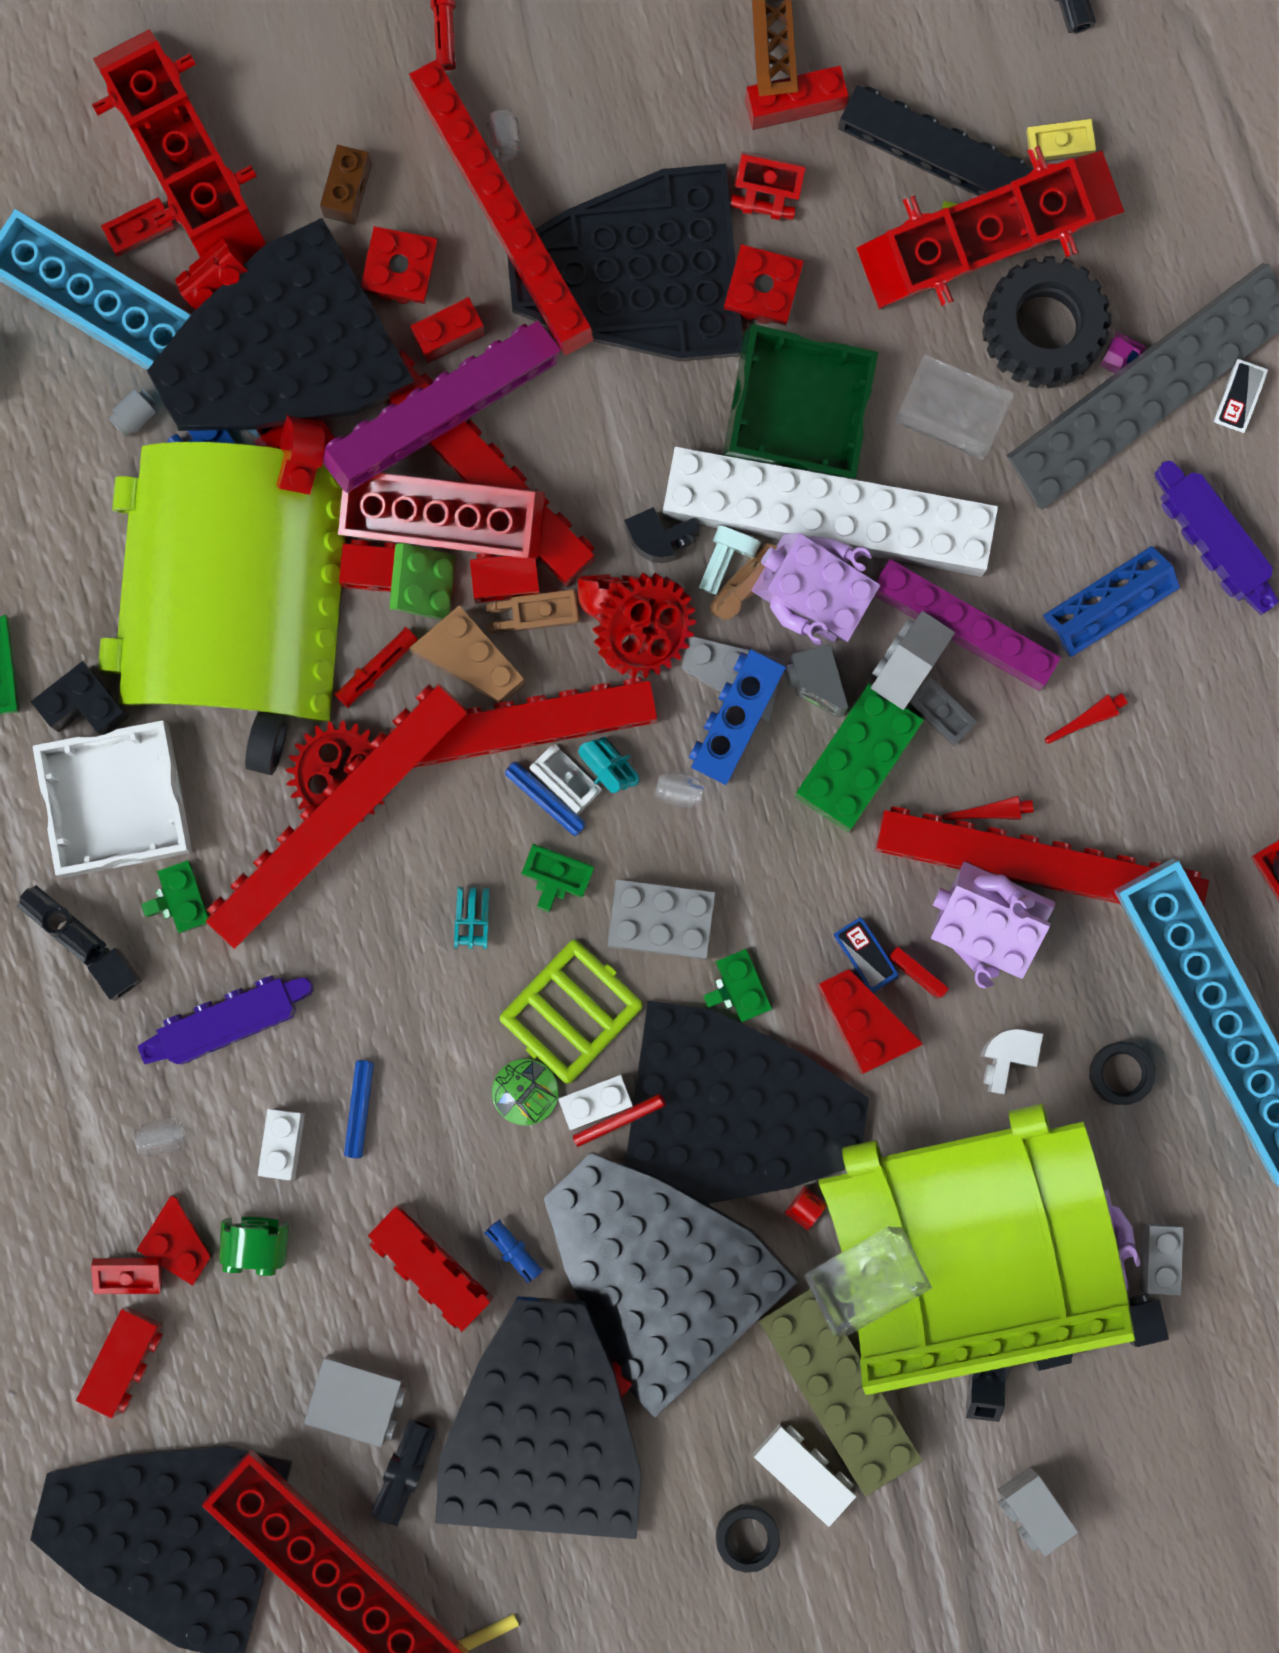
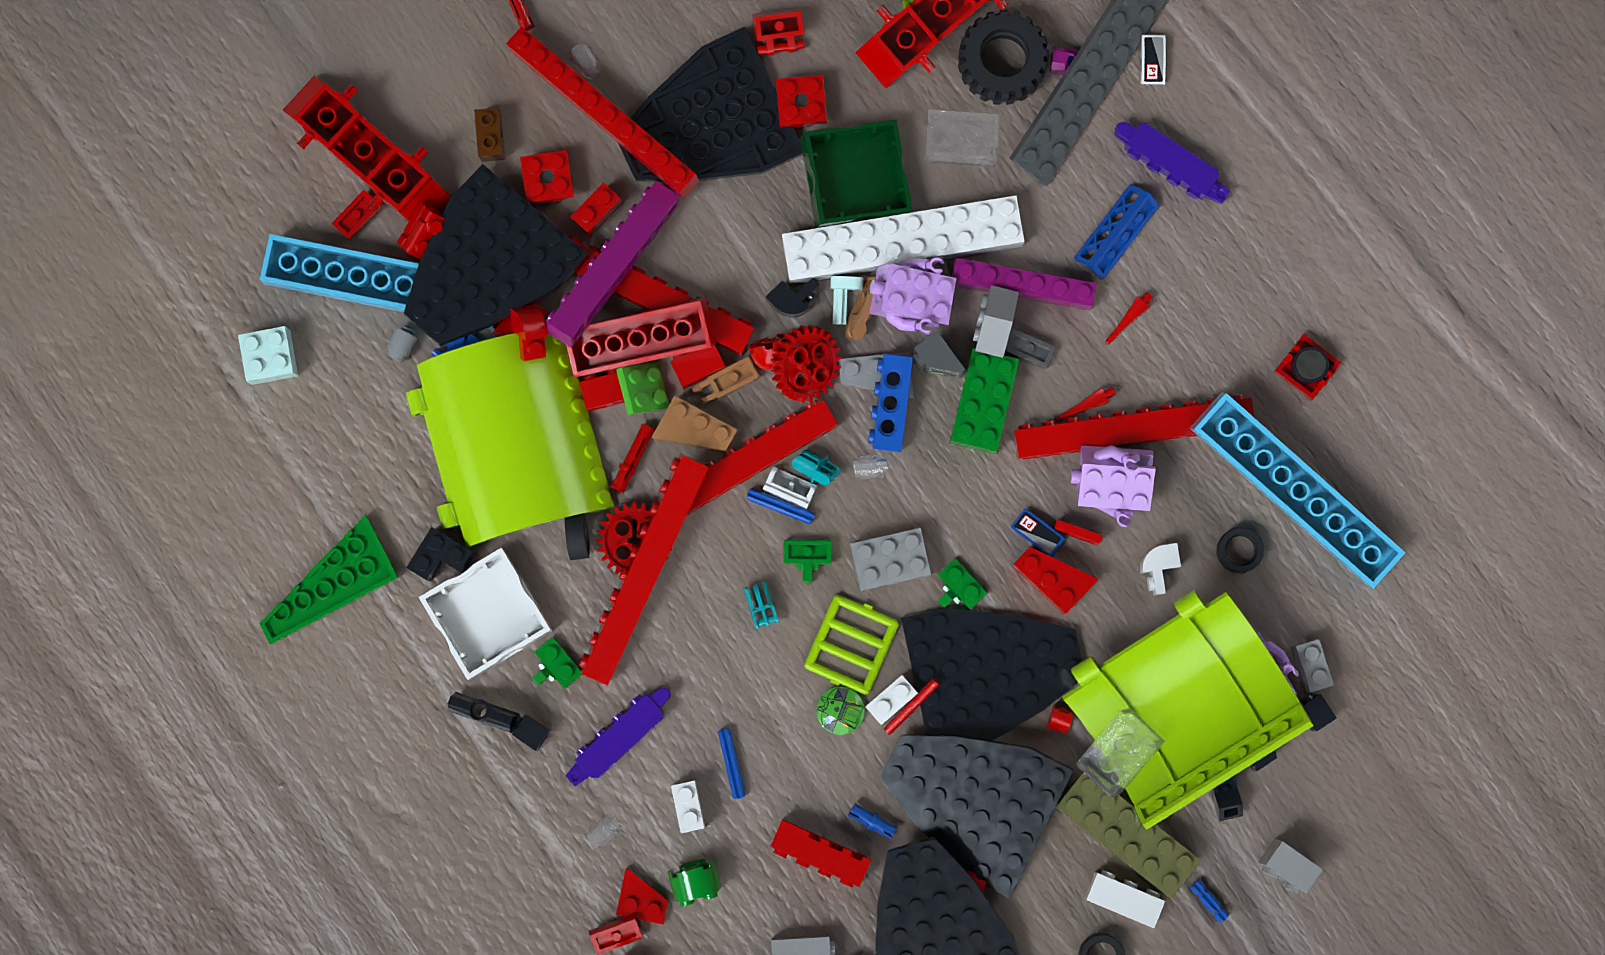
camera: 15 degrees left, 0 degrees up
(915, 1517) = (1209, 901): none -> blue axle

